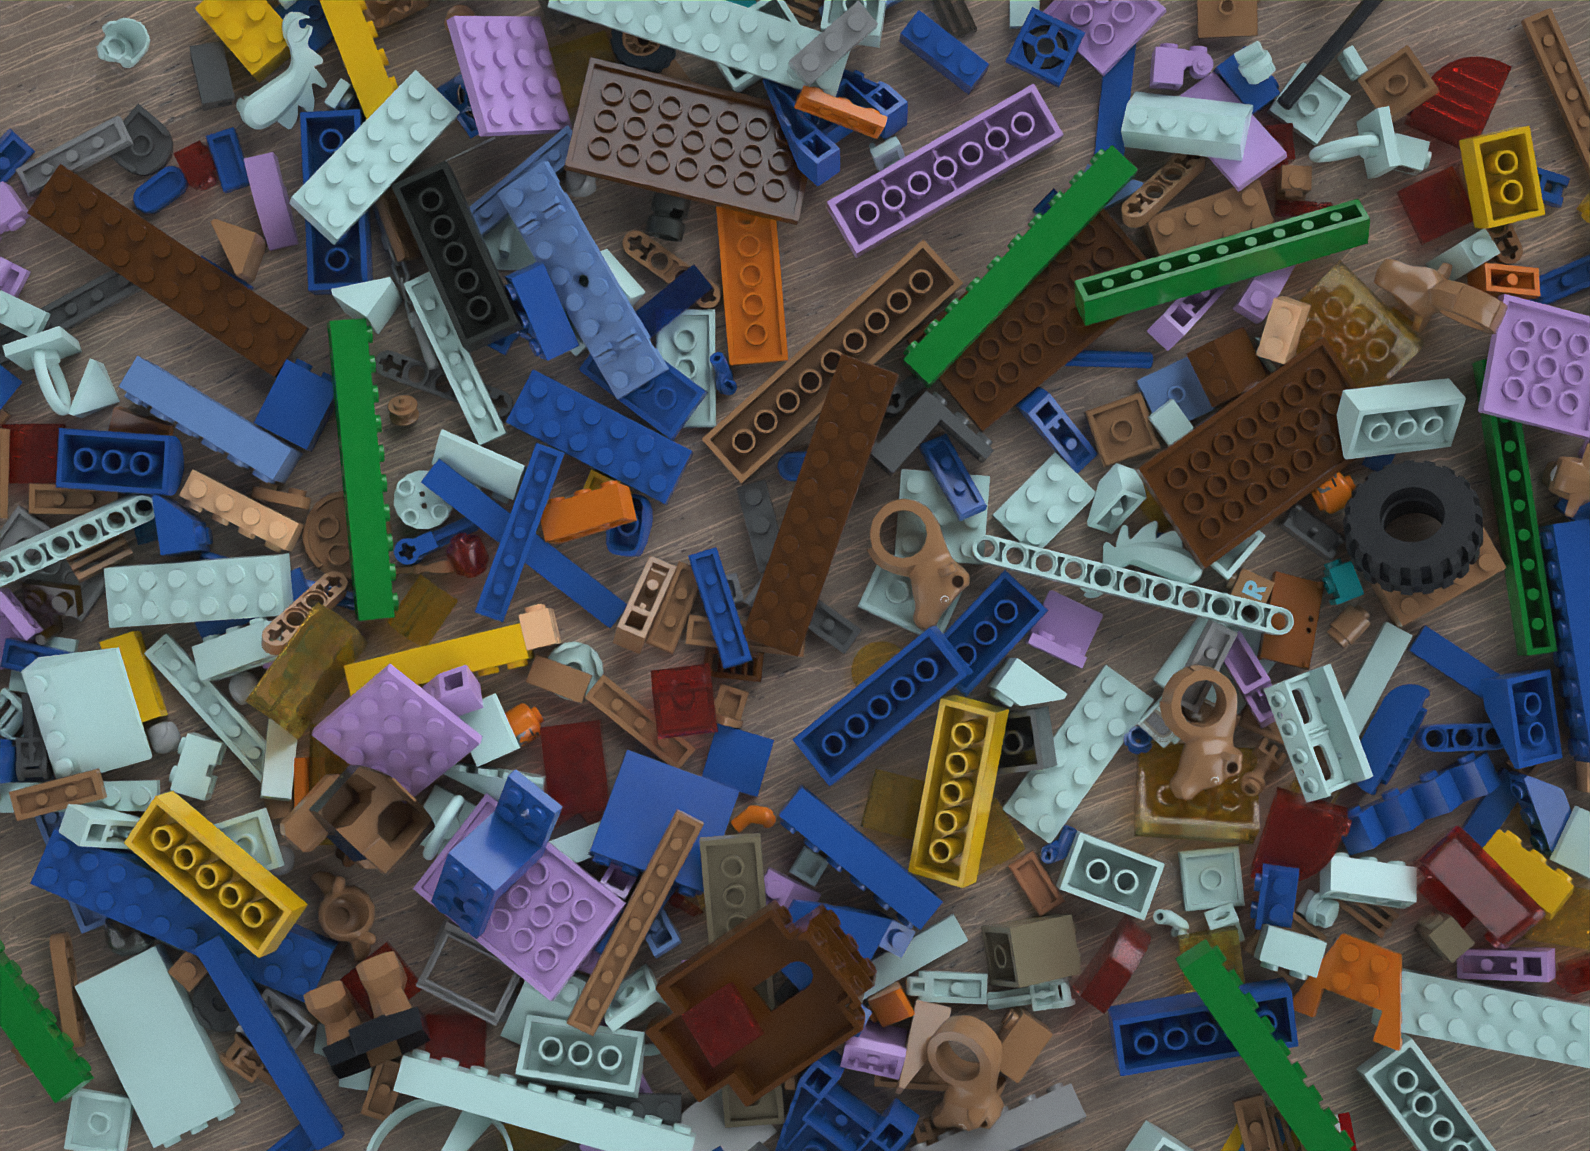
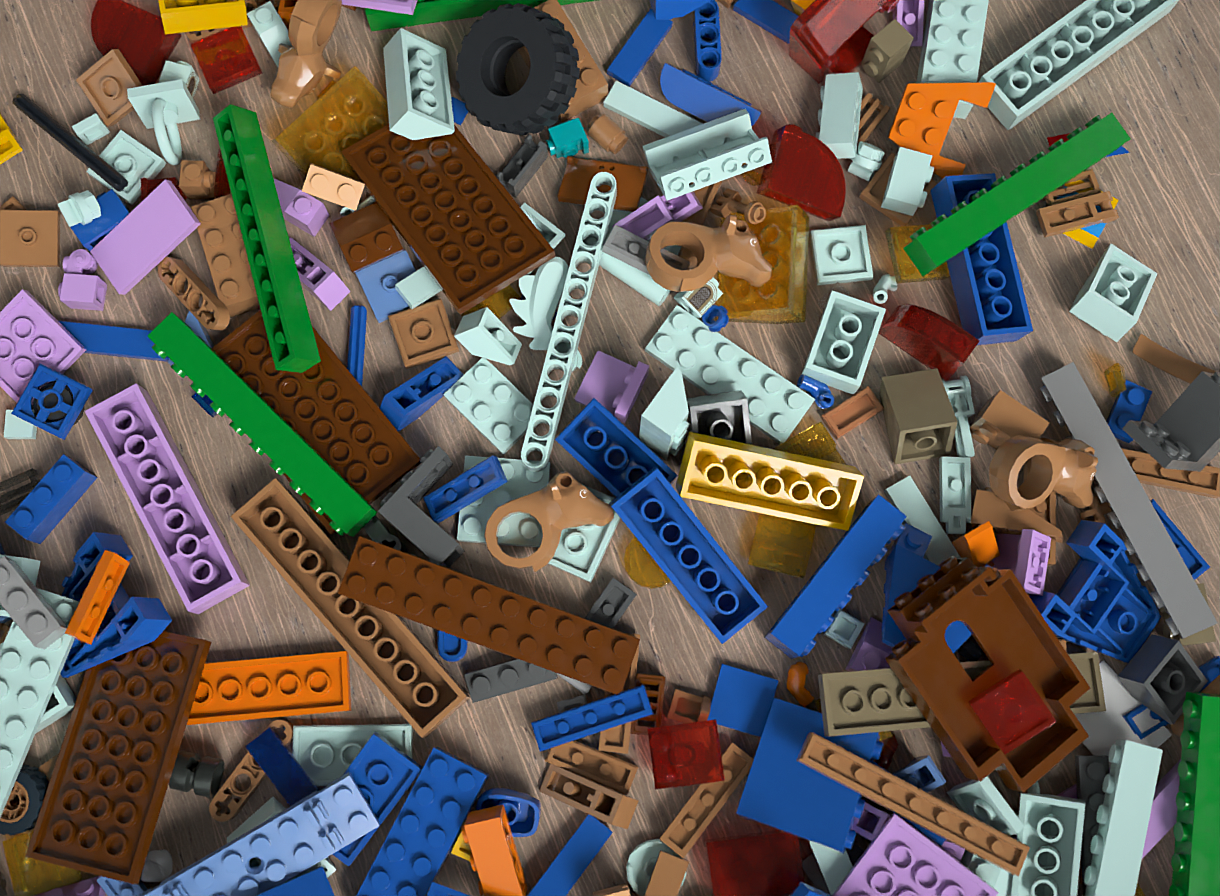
camera: 90 degrees left, 10 degrees down
(723, 374) = (358, 716): blue arm -> none
(886, 153) = (145, 554): light aqua tile -> none
(1186, 125) = (137, 271): light aqua slope -> none
(1224, 917) = (878, 242): light aqua bracket -> none
(1249, 586) = (570, 218): medium nougat brick -> none
(1276, 896) = (857, 193): blue bracket -> none
(1333, 493) = (487, 144): orange head -> none
(1427, 798) = (761, 65): blue brick -> none

